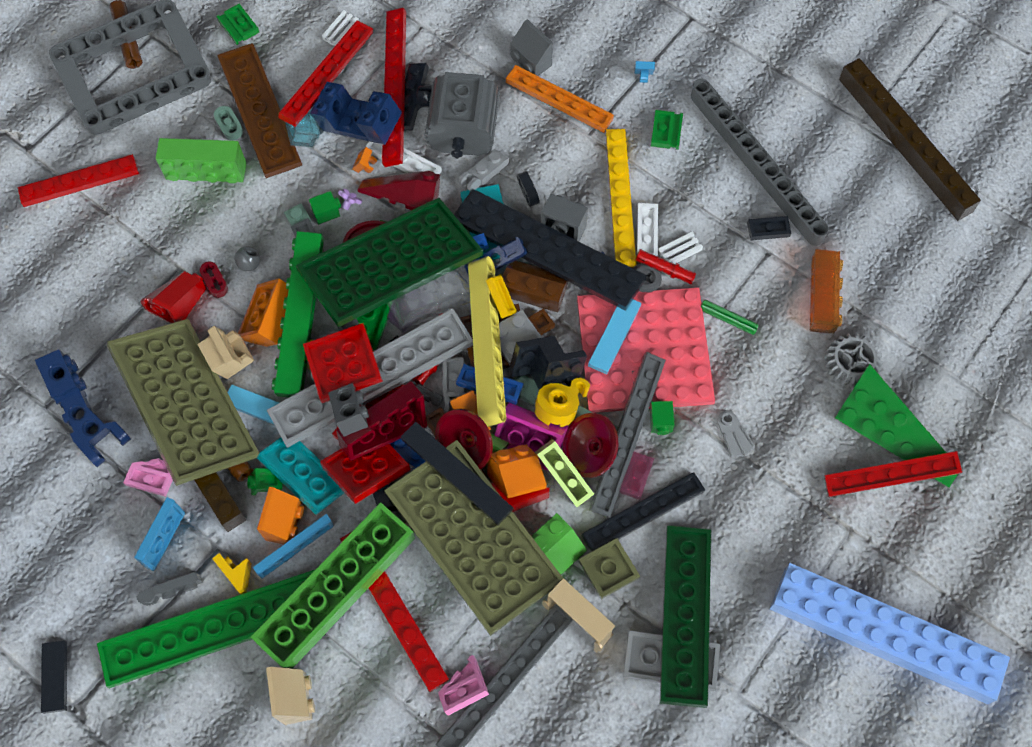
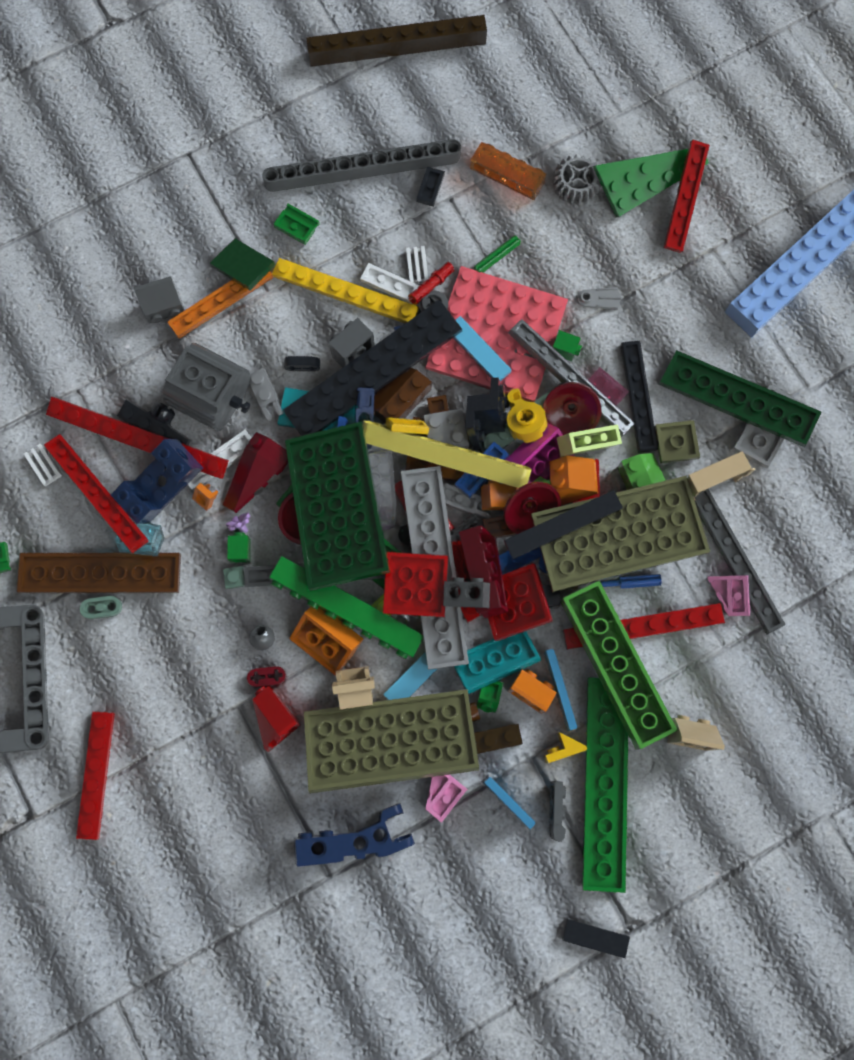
camera: 70 degrees left, 10 degrees up
(201, 160) = (137, 645): bright green brick -> none
(437, 581) = (635, 581): none -> blue axle
(601, 100) = (242, 264): none -> dark green tile
(644, 69) = (227, 215): dark azure tile -> none

